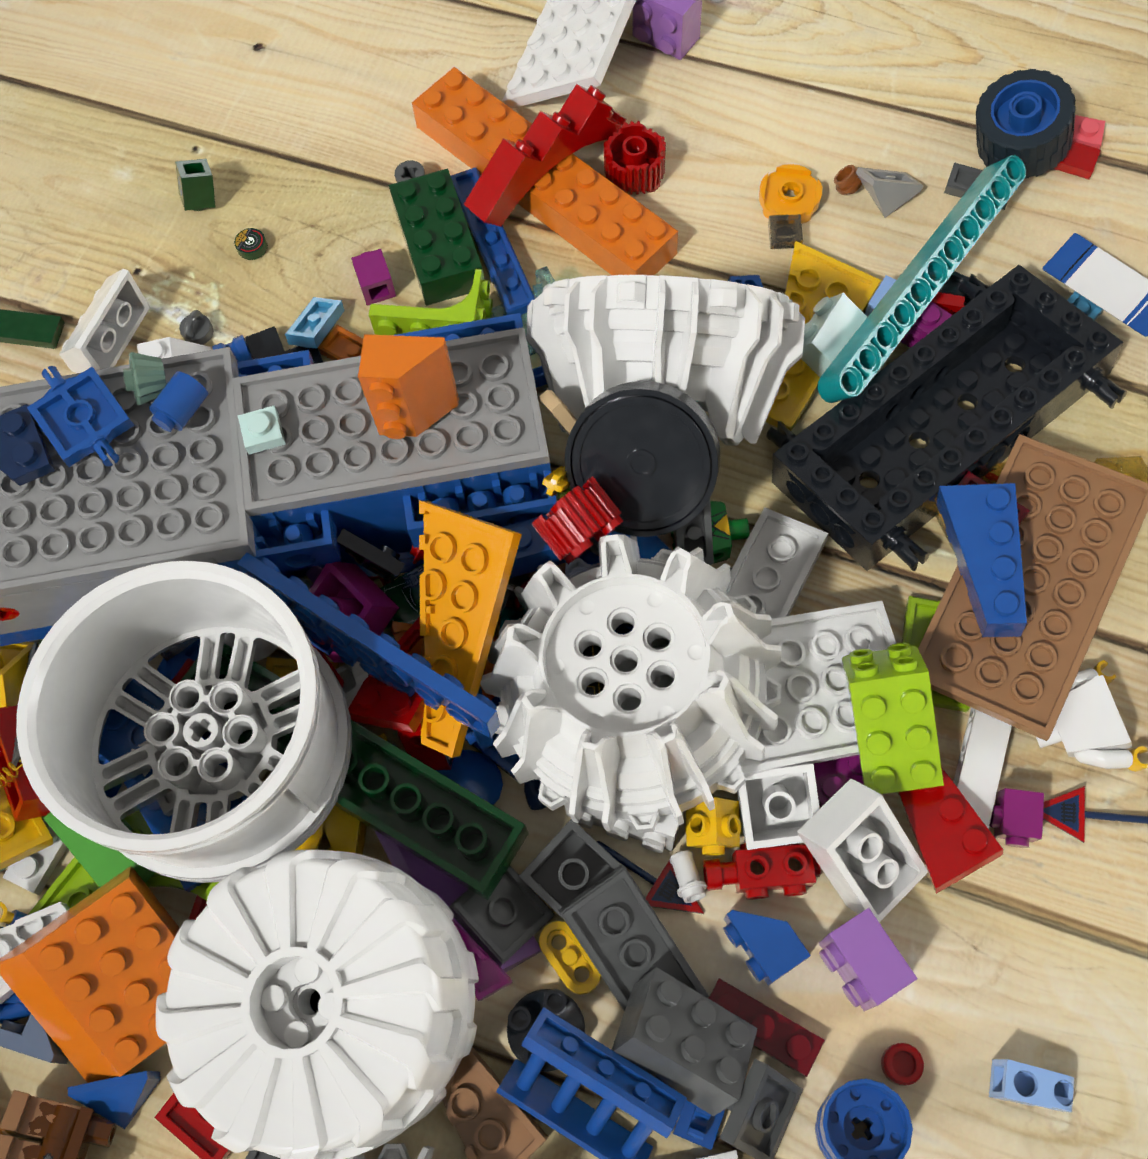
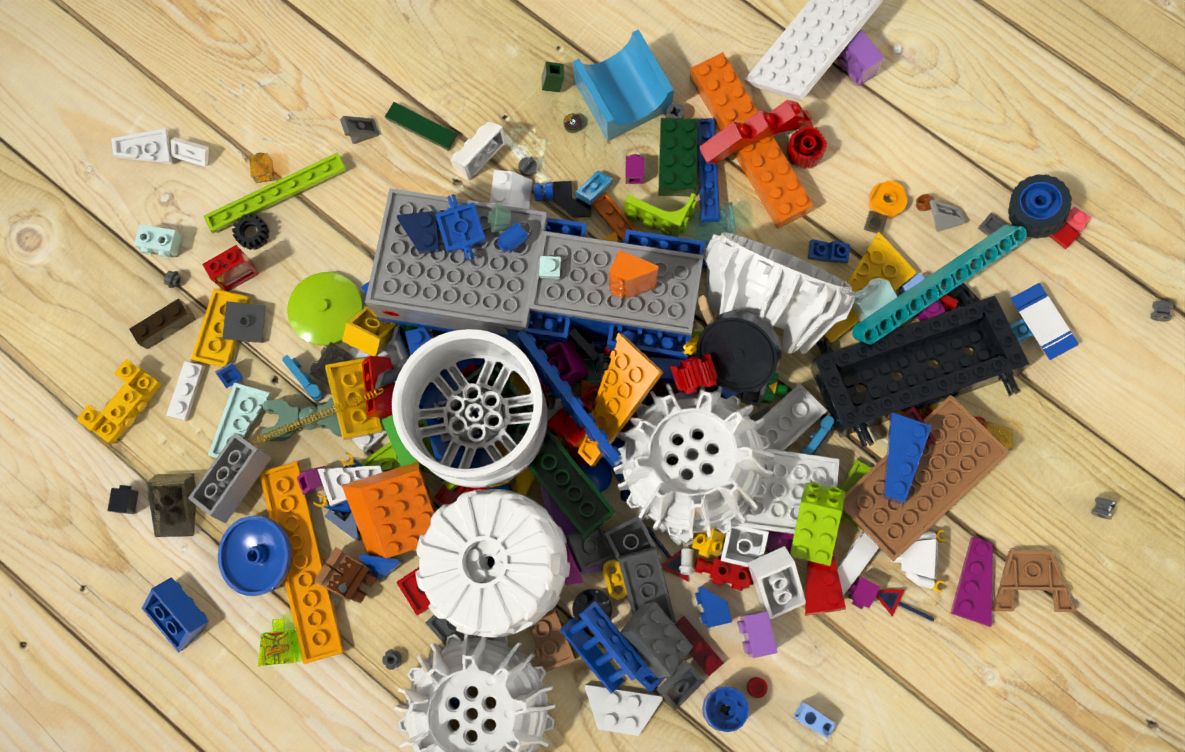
camera: 20 degrees right, 10 degrees up
(320, 165) = (624, 88): none -> dark azure piece
(831, 584) = (817, 438): none -> dark azure hinge

